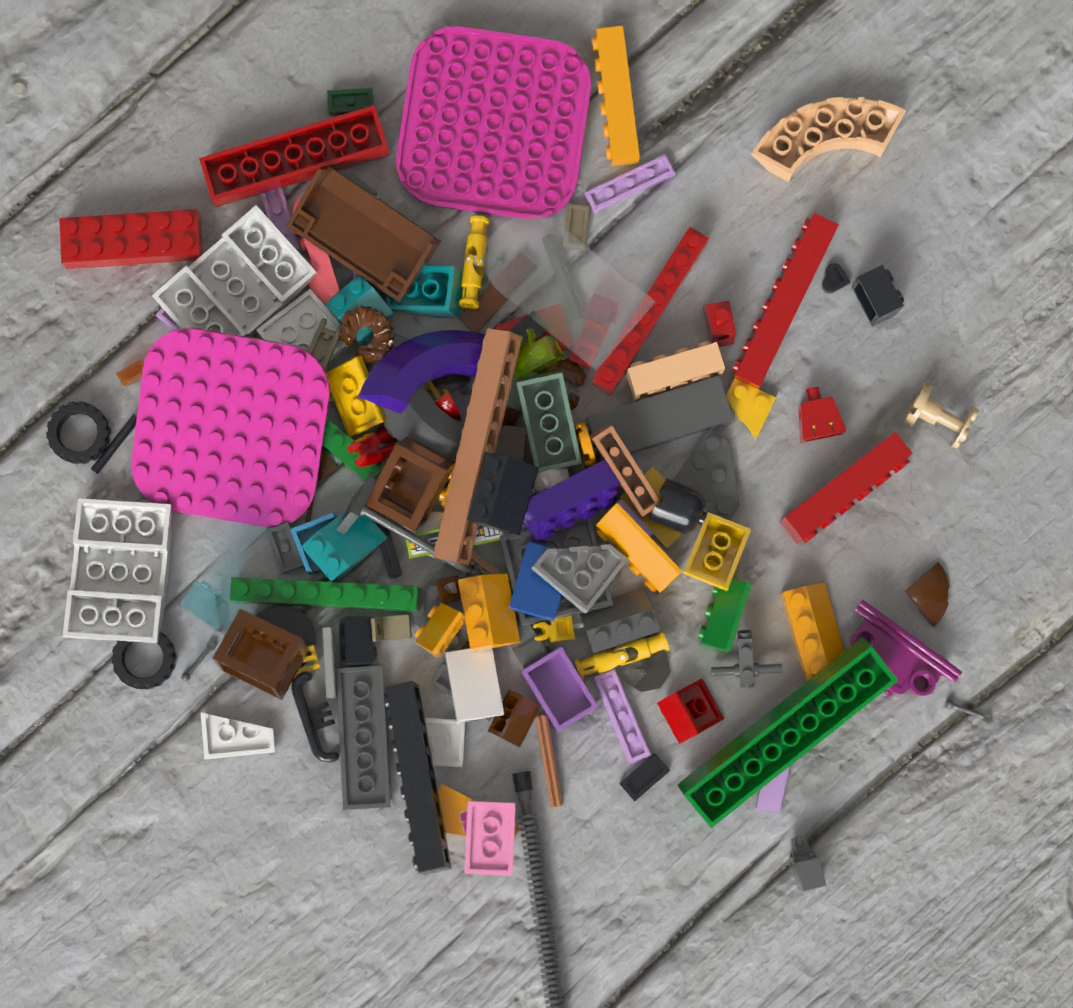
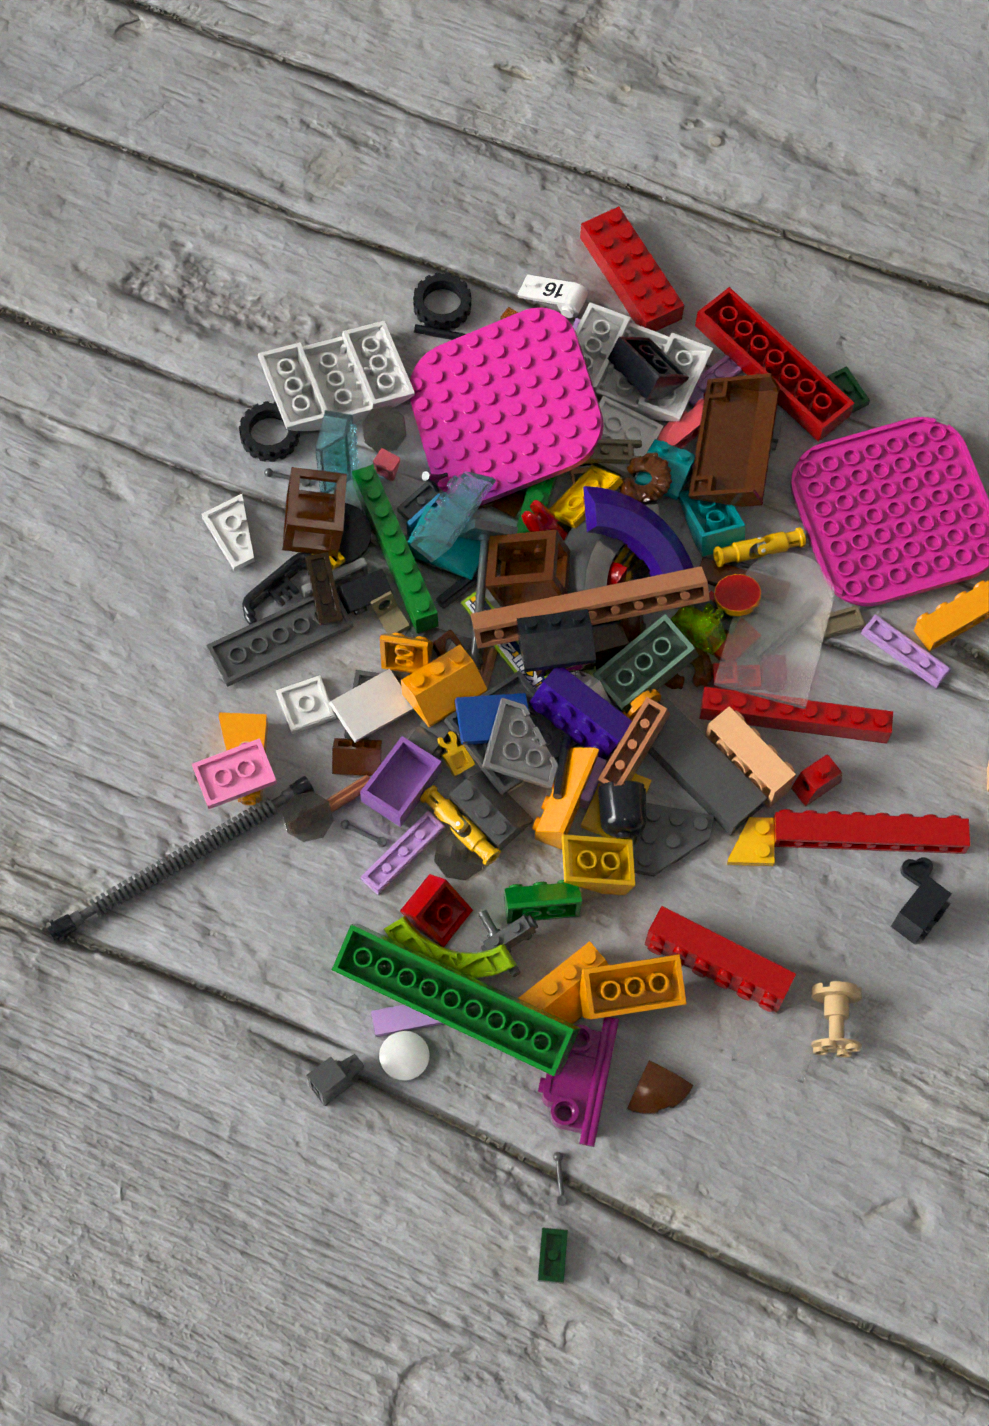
camera: 65 degrees right, 15 degrees down
(126, 315) = (565, 294): none -> white door
(194, 549) = (384, 429): none -> clear smoke piece
(232, 563) = (386, 464): none -> coral slope
(251, 276) = (646, 367): none -> black slope
(272, 527) = (433, 478): none -> bar
(329, 529) = (451, 514): none -> clear light blue slope
(341, 679) = (323, 588): none -> dark brown plate
(417, 778) = (261, 690): black brick -> none
(516, 306) = (737, 594): none -> red tile
(554, 787) = (307, 816): none -> clear smoke piece
(602, 731) = (381, 841): none -> dark grey hinge
(616, 543) = (562, 767): none -> black bar
(644, 777) = (354, 897): black tile -> none
(749, 712) = (473, 964): none -> lime tile
(807, 796) = (404, 1055): none -> white dish
(819, 417) = (775, 909): red torso -> none
(843, 576) = (632, 987): none -> light orange slope
(1032, 747) = (552, 1255): none -> dark green plate

